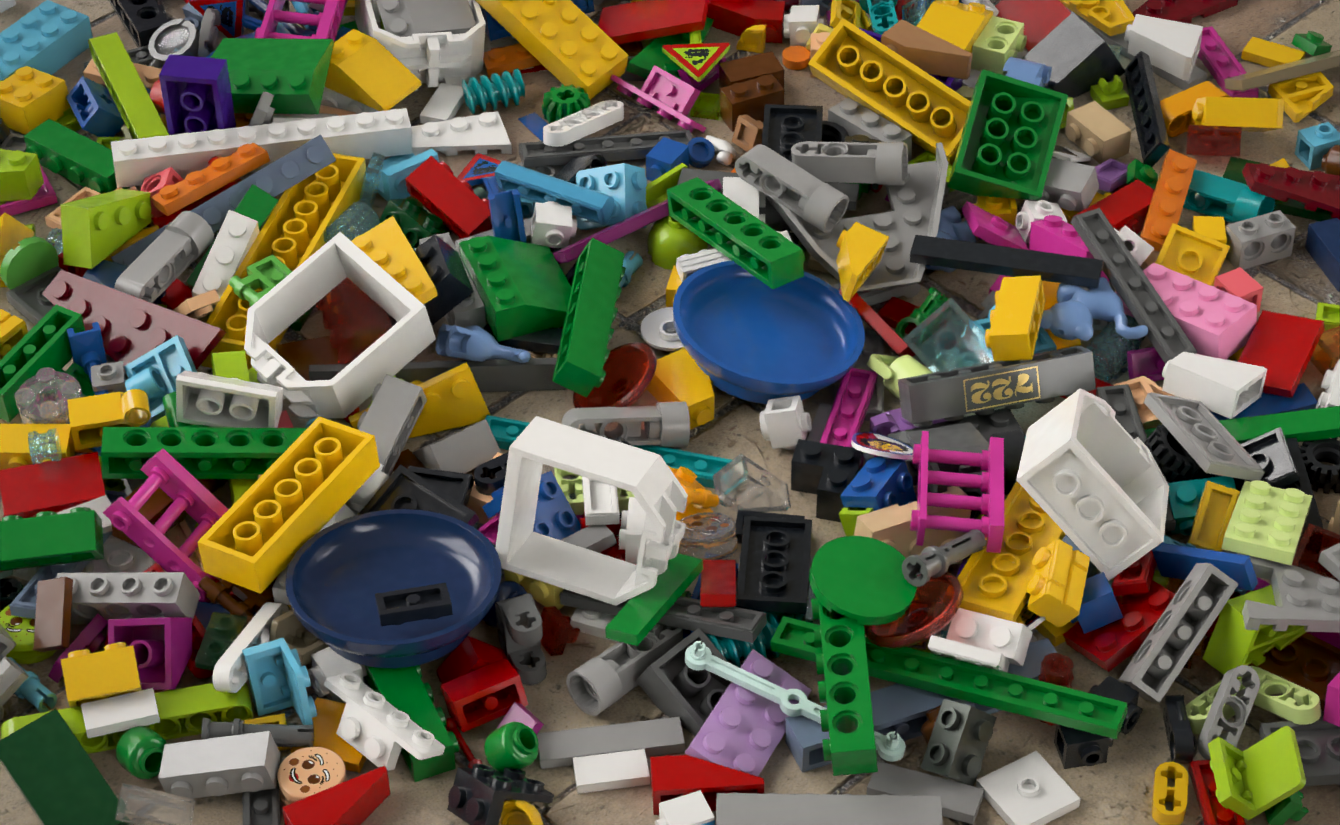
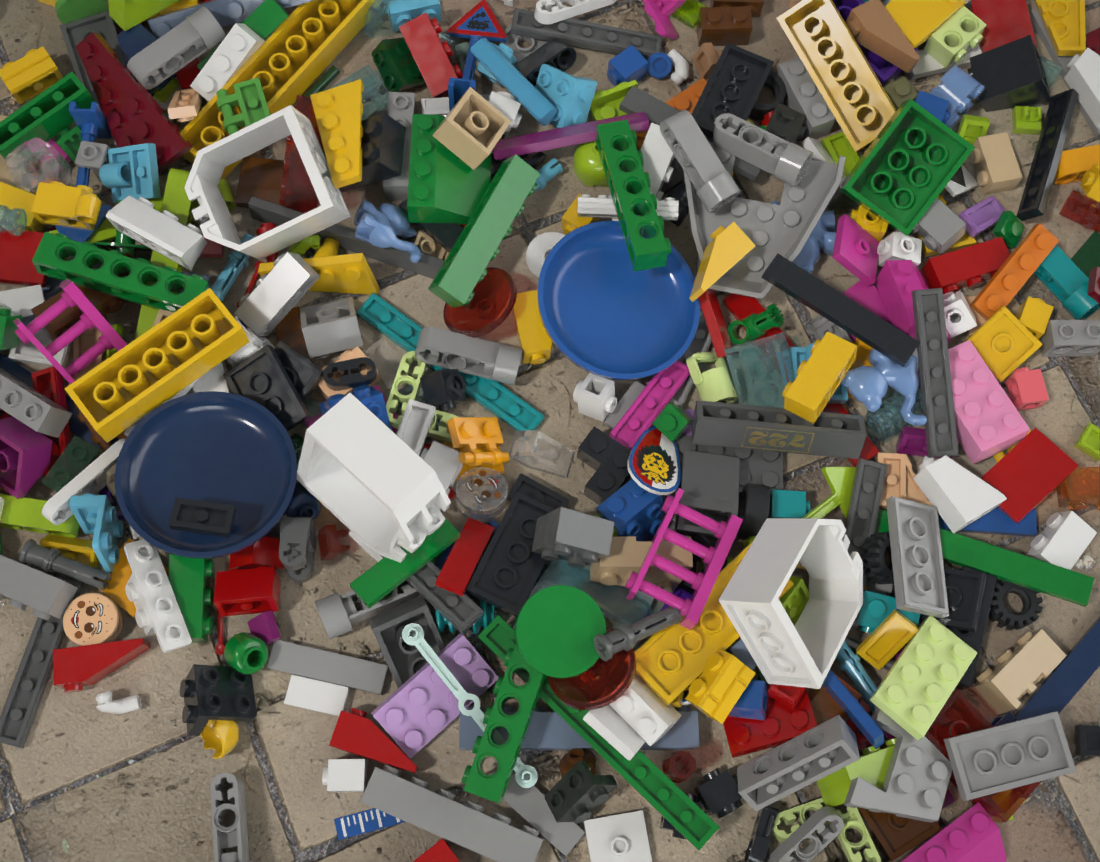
camera: 15 degrees right, 30 degrees up
(353, 221) = (345, 56): clear light blue piece -> none
(532, 232) = (472, 128): none -> tan slope
(828, 509) = (572, 537): none -> brick
(880, 417) = (672, 422): none -> green plate

